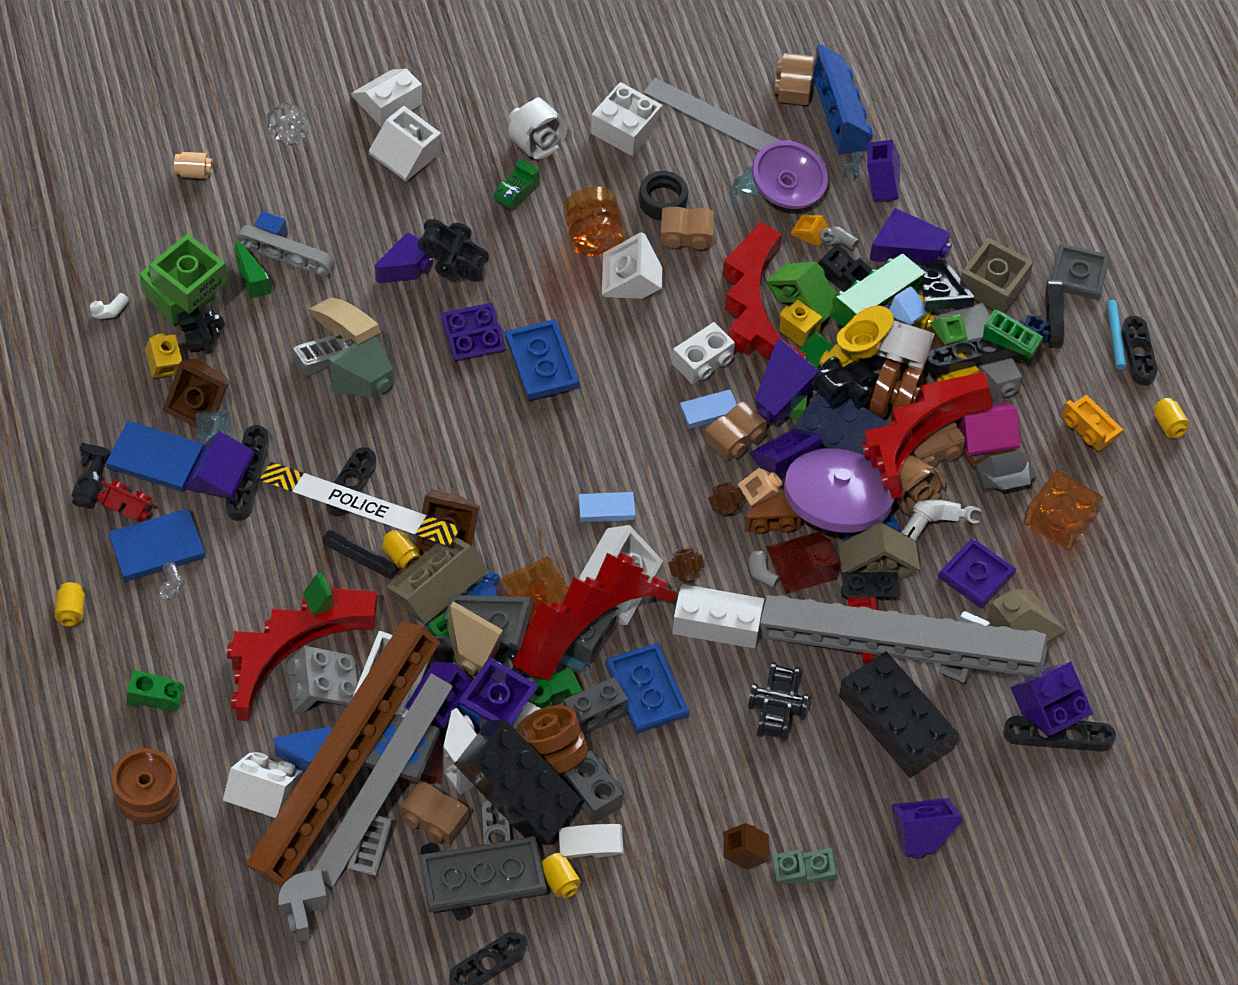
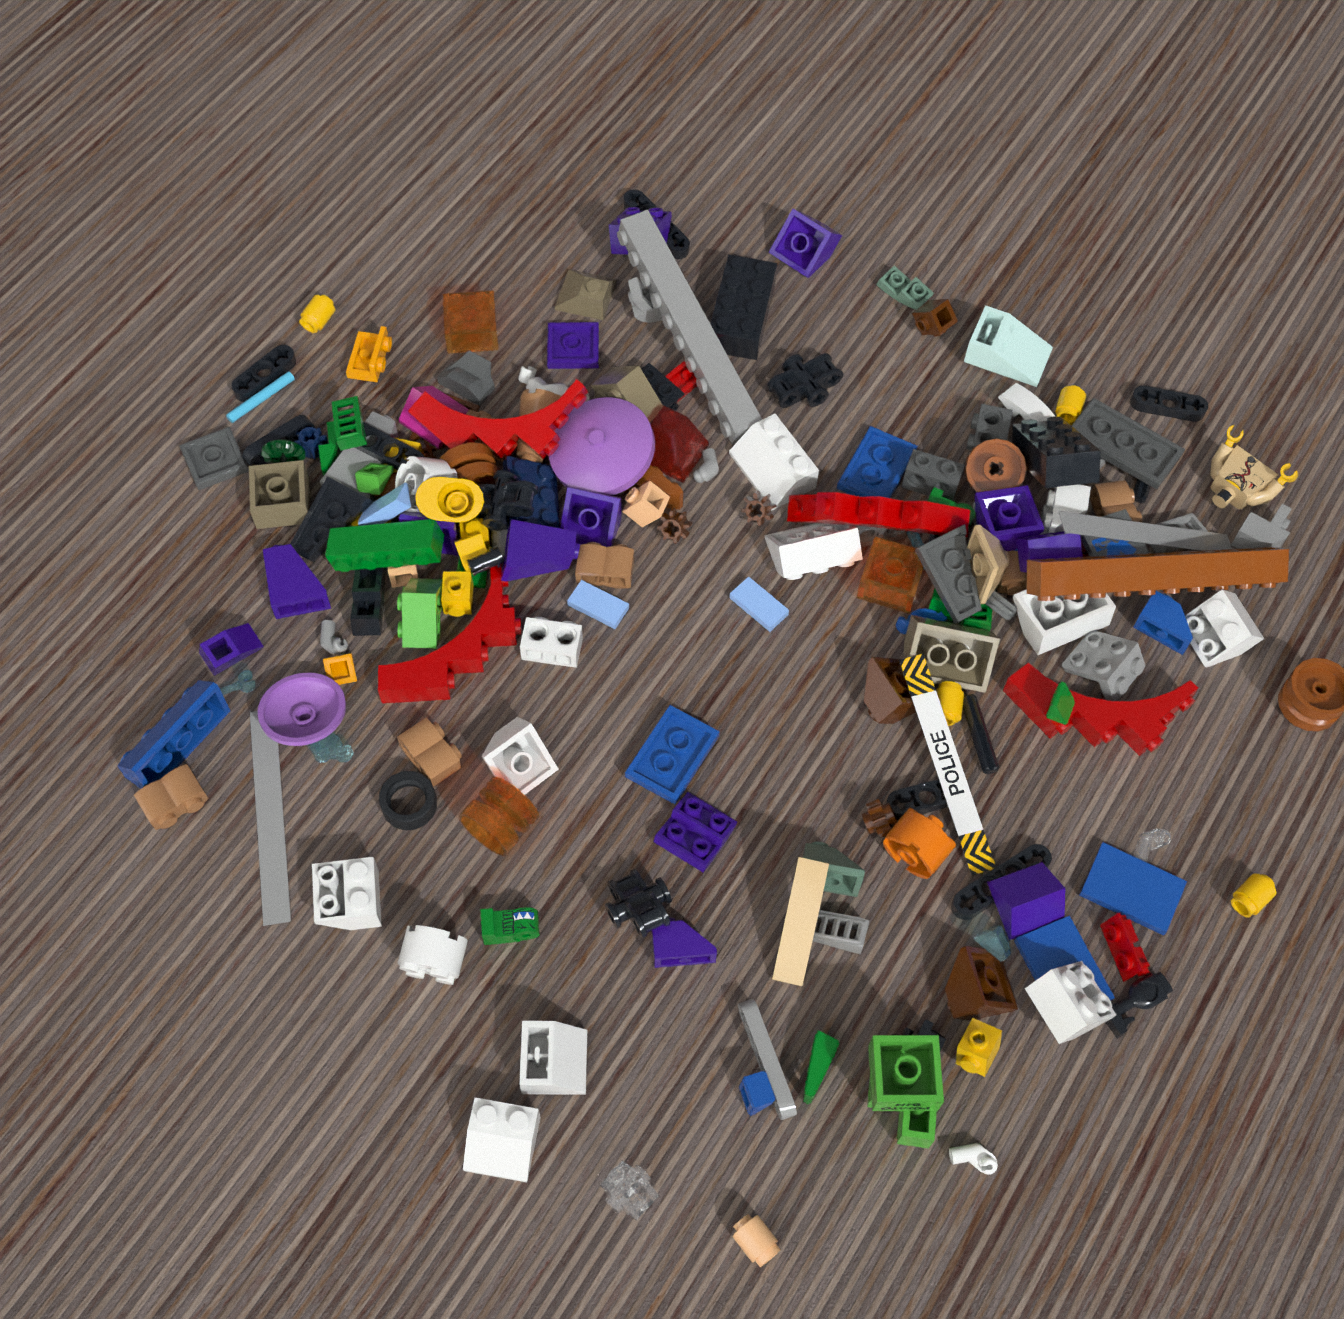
camera: 130 degrees left, 5 degrees up
(129, 424) = (1070, 1001): none -> white slope
(154, 691) = (1245, 765): green leg -> none
(321, 431) = (919, 843): none -> orange brick
(362, 935) = (1243, 478): none -> tan torso
(365, 432) = (879, 818): none -> reddish brown gear
(661, 878) = (1007, 347): none -> light aqua slope
(802, 338) = (485, 561): none -> black pin
(818, 343) = (469, 548): none -> yellow slope
(1034, 300) = (273, 451): none -> dark green gear

